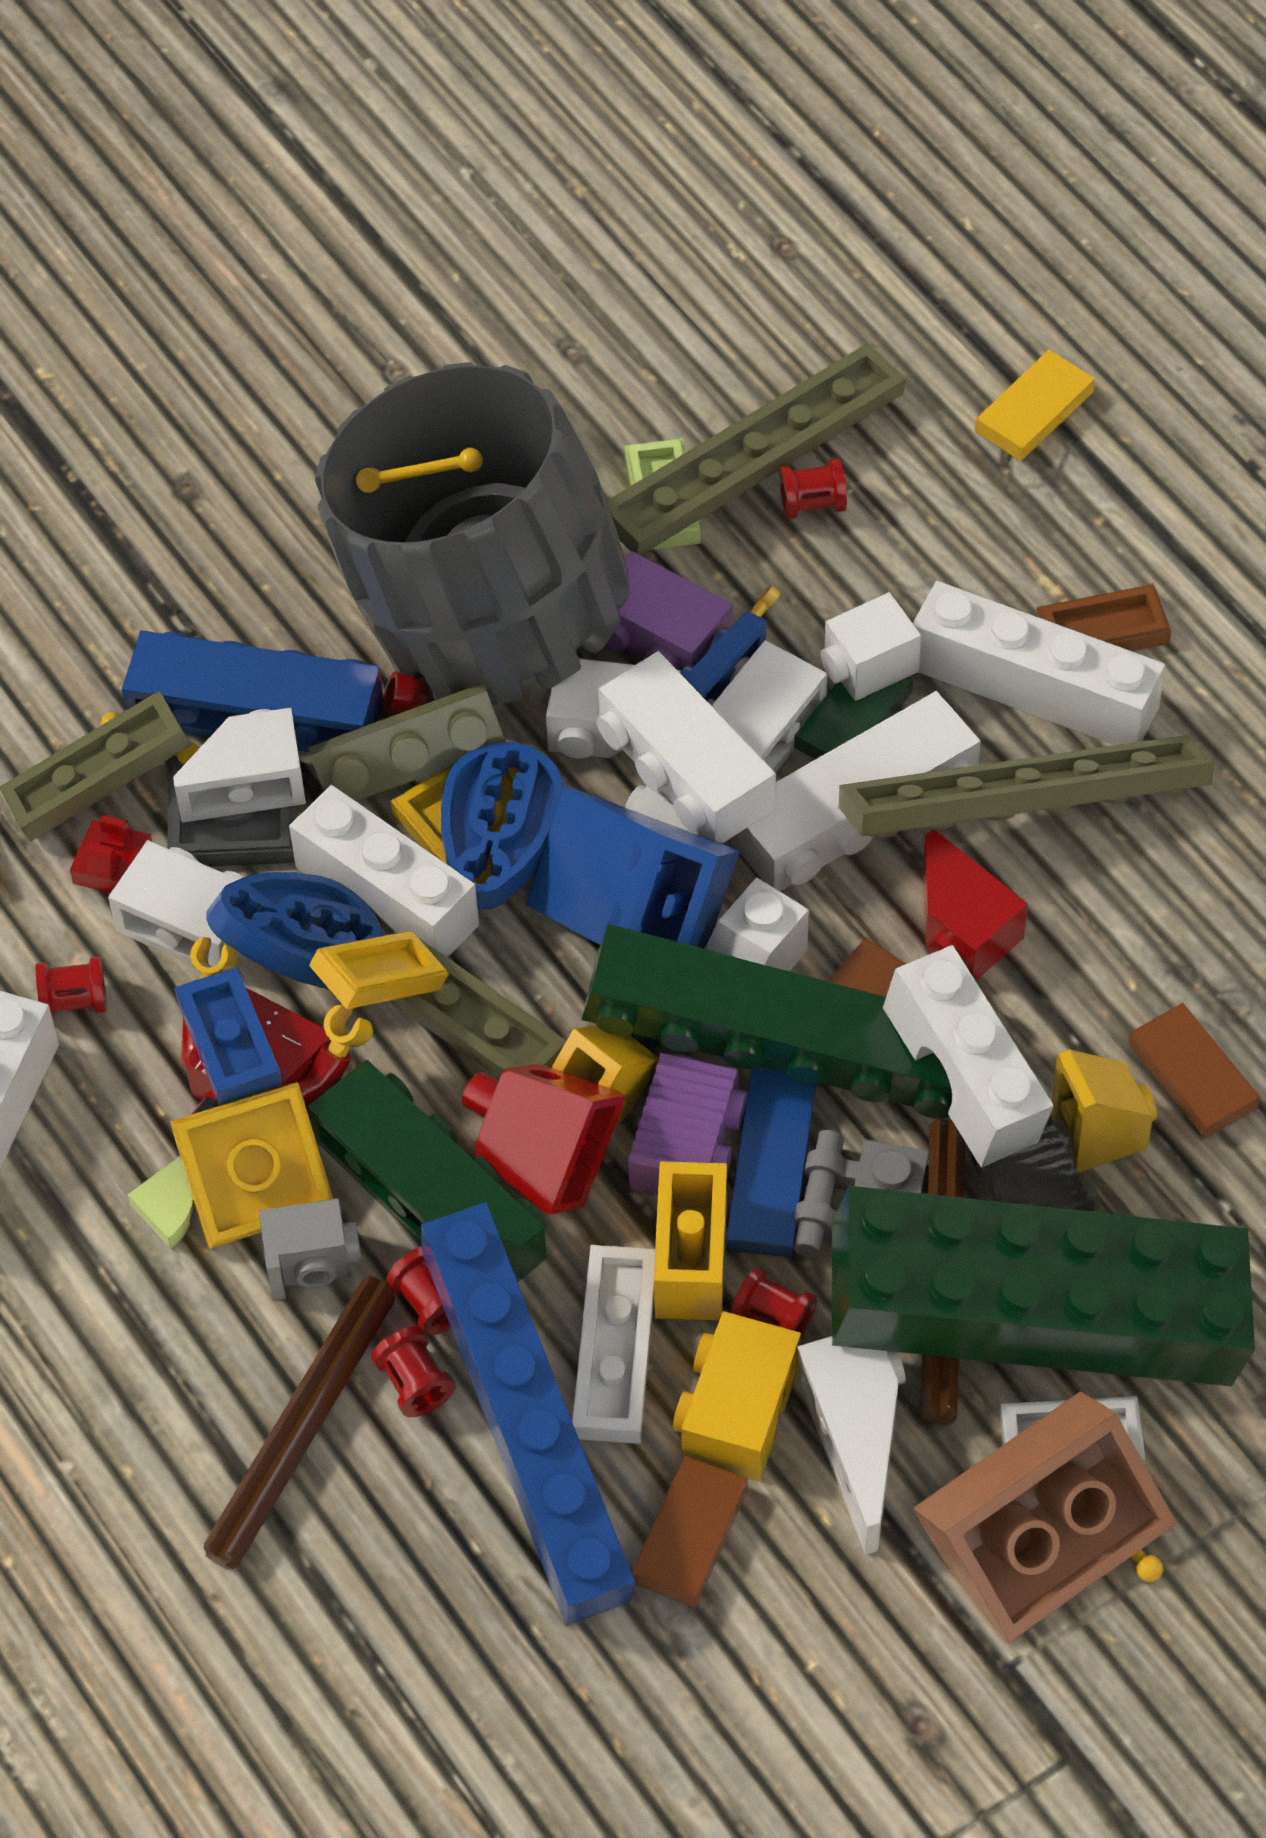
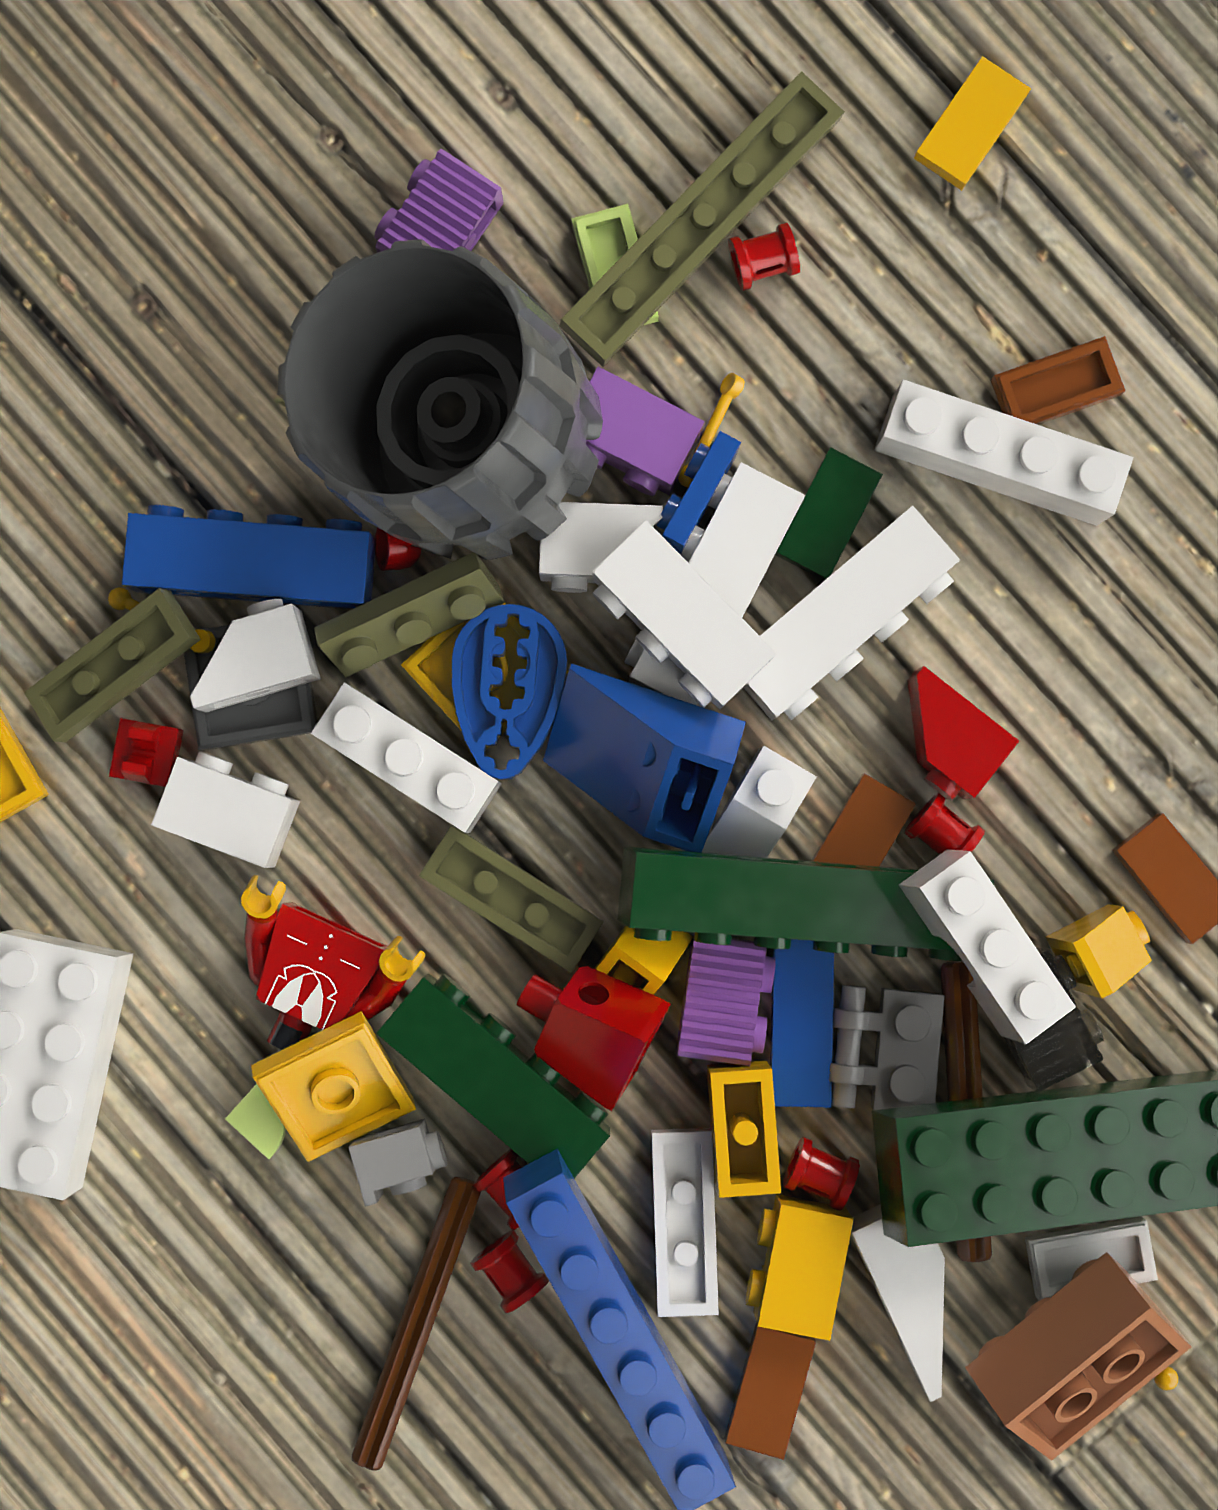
camera: 10 degrees left, 30 degrees up
(72, 986) = (133, 907): red bush -> none
(228, 1036) = (290, 982): blue plate -> none
(287, 917) = (336, 809): blue piece -> none
(371, 479) = (333, 364): yellow hinge -> none
(378, 969) = (420, 890): yellow tile -> none
(871, 647) = (843, 457): white brick -> none
(1024, 785) = (1005, 606): olive plate -> none

